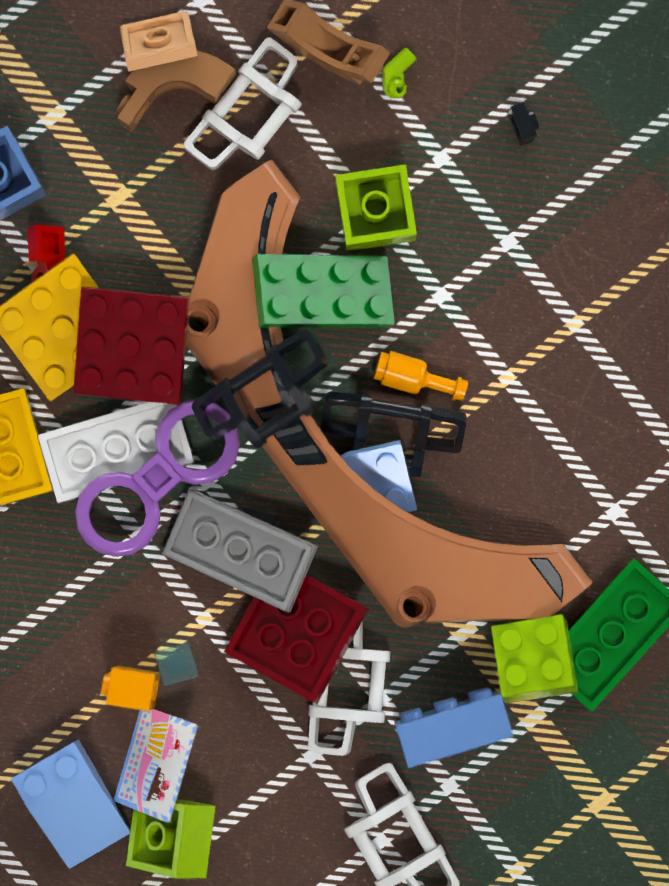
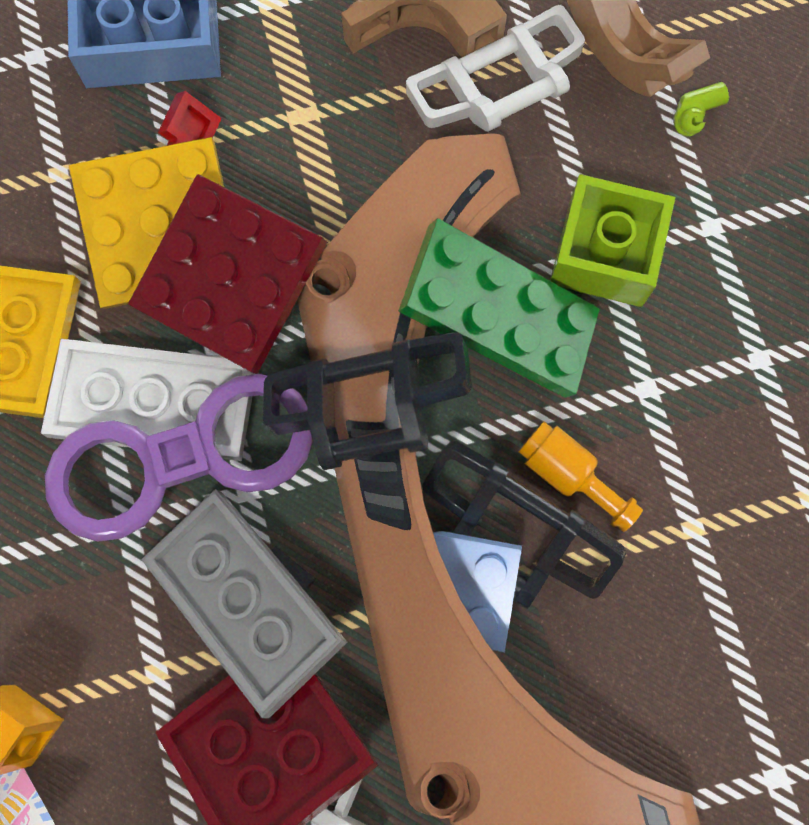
camera: 25 degrees right, 10 degrees down
(176, 664) = (85, 719): clear light blue plate -> none

